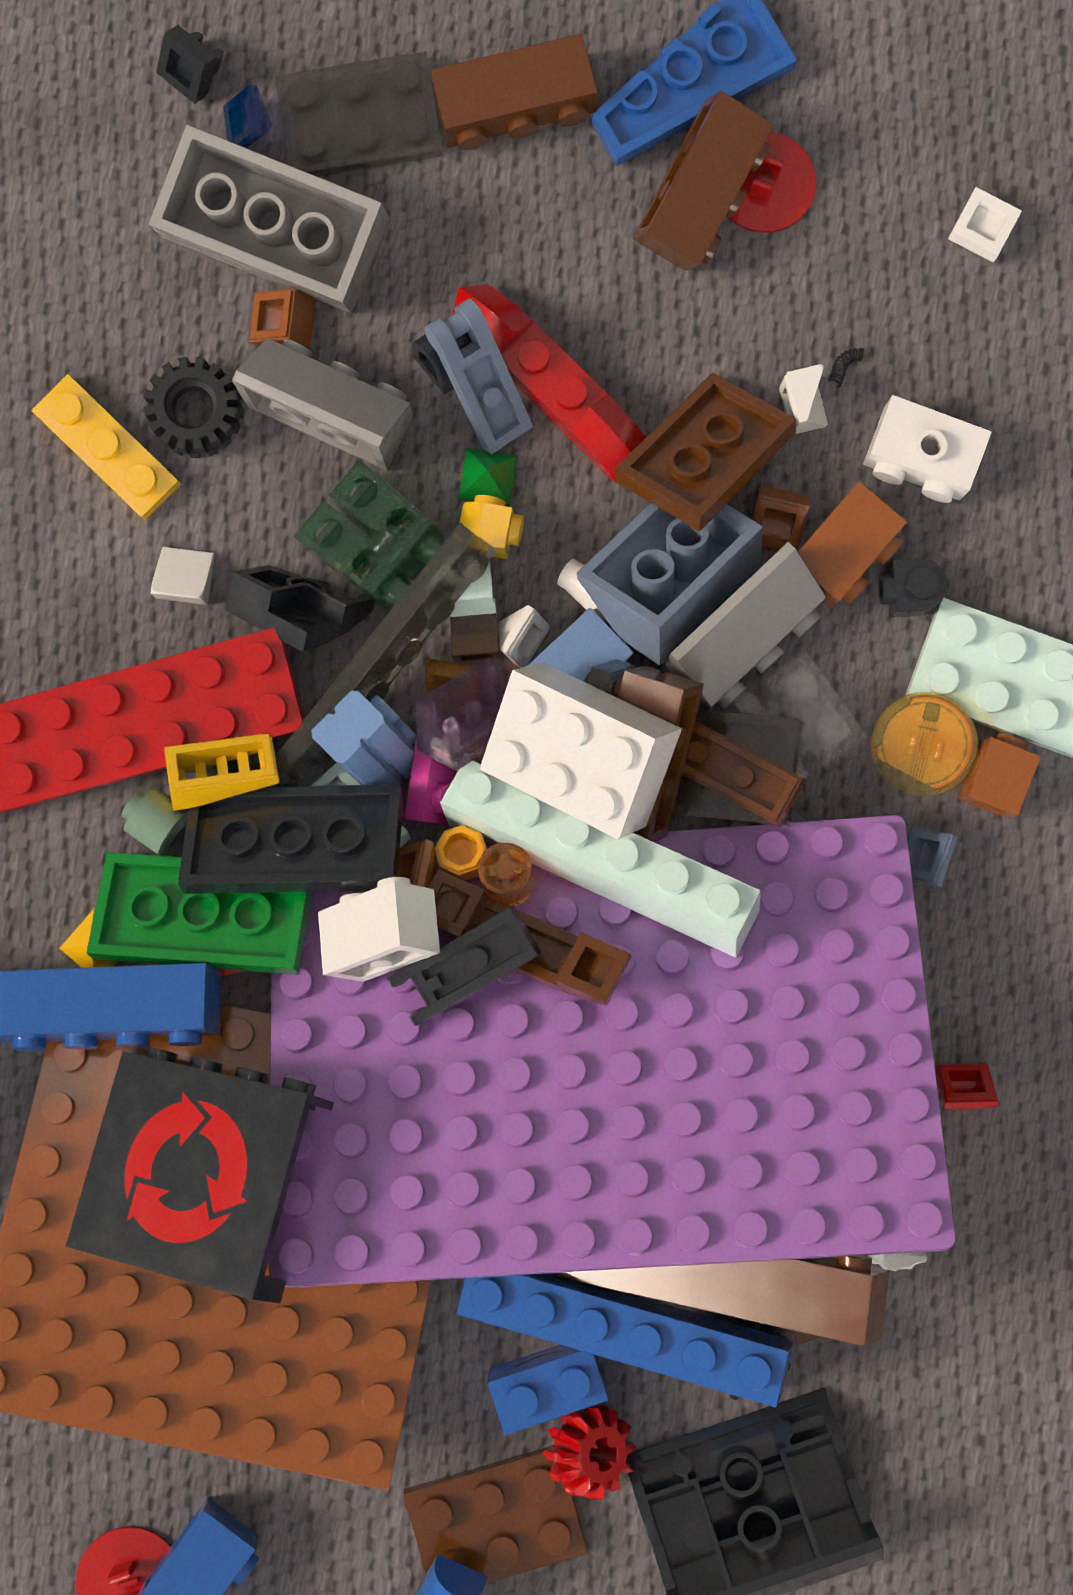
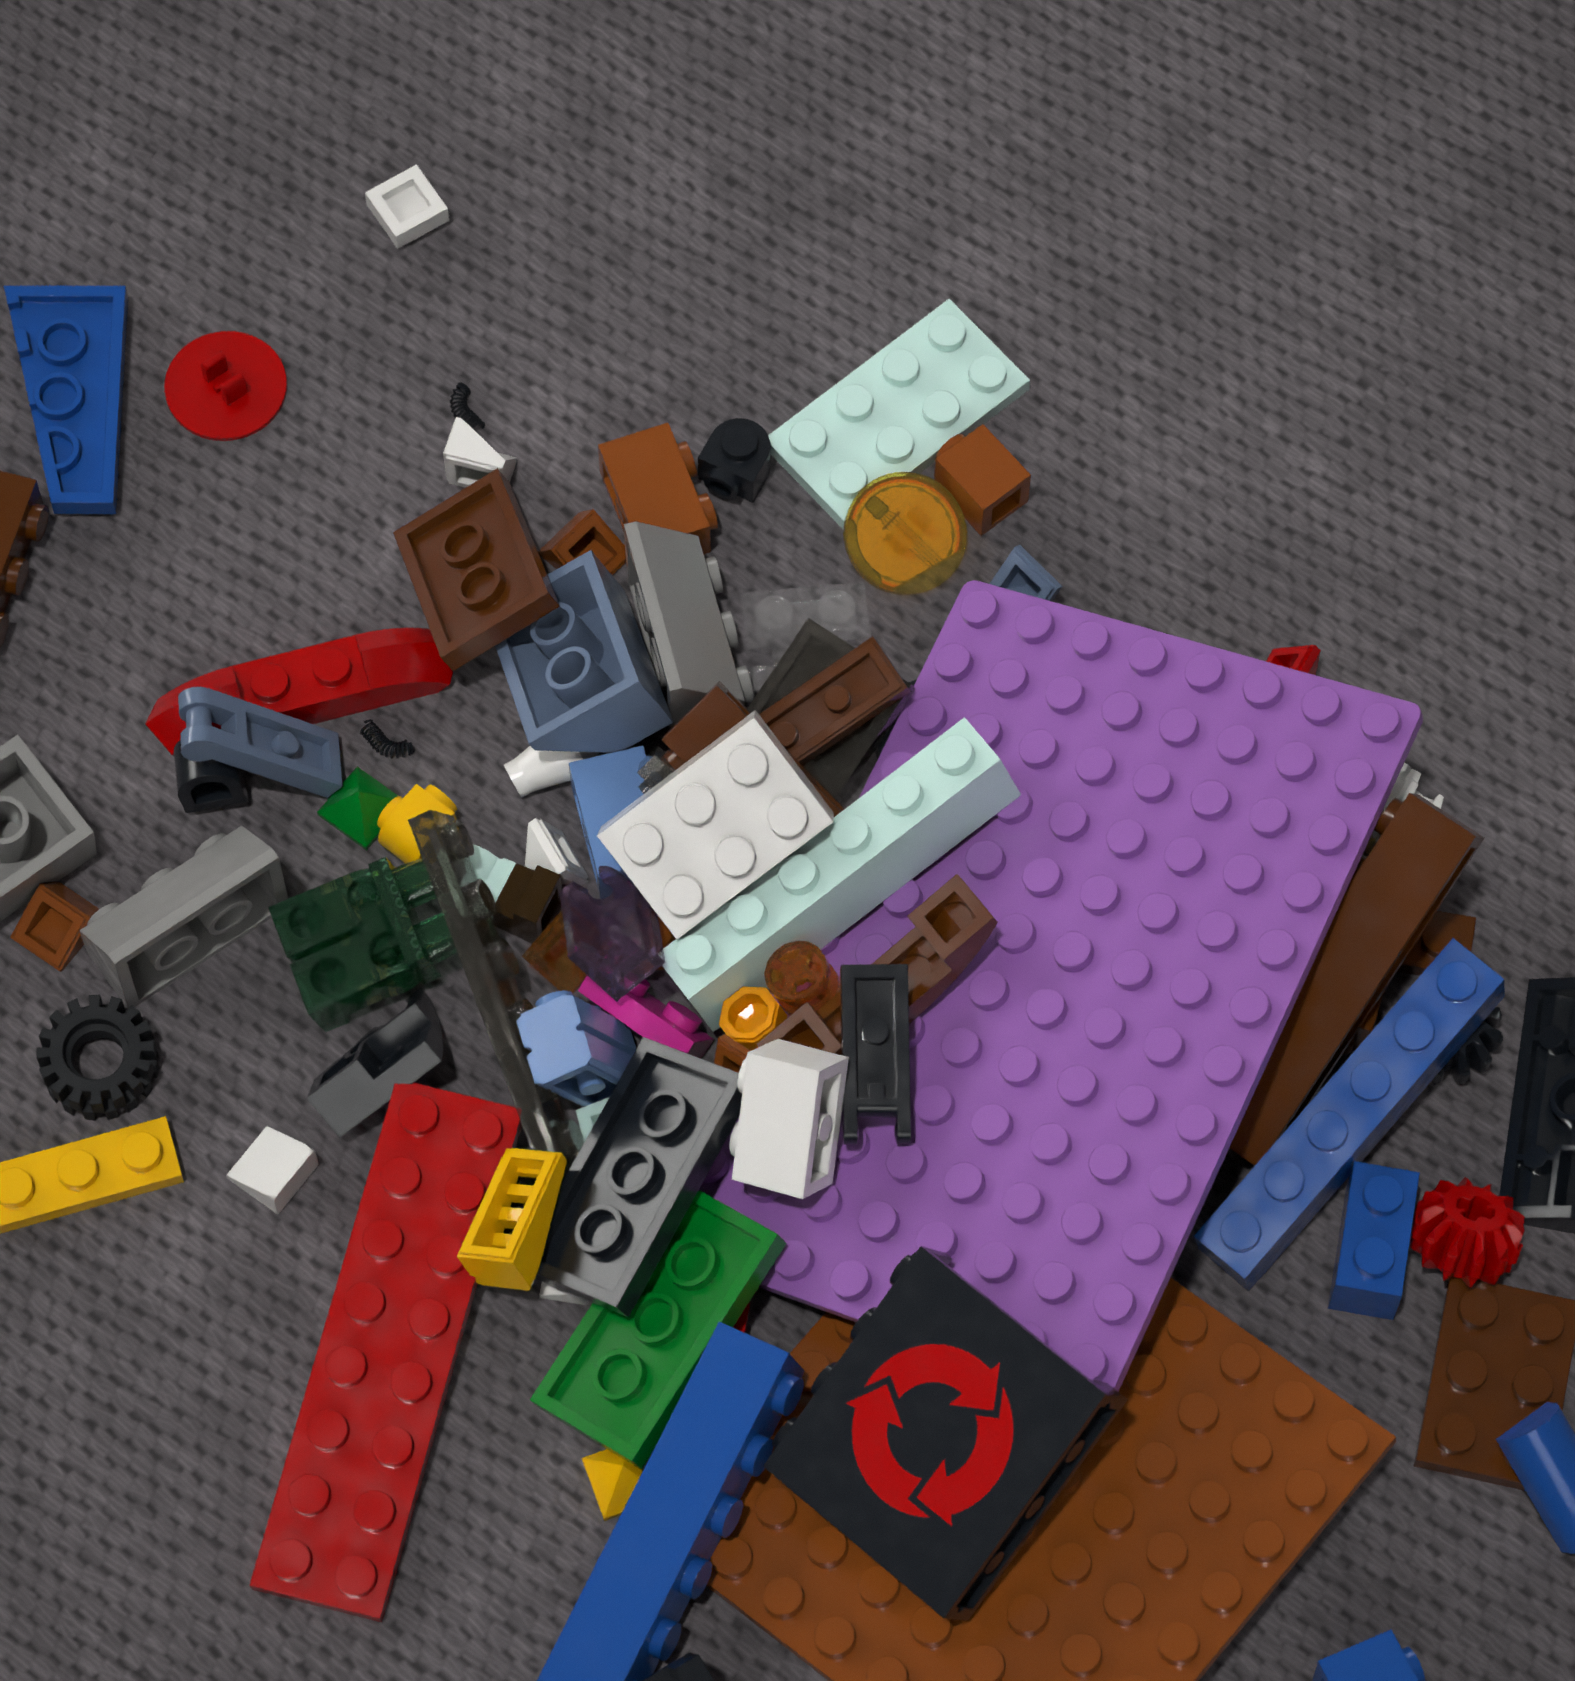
camera: 65 degrees left, 20 degrees down
(153, 821) = (526, 1329): sand green plate -> none
(550, 472) = (385, 740): none -> black leg
(704, 182) = (194, 433): reddish brown brick -> none
(926, 450) = (602, 374): white brick -> none

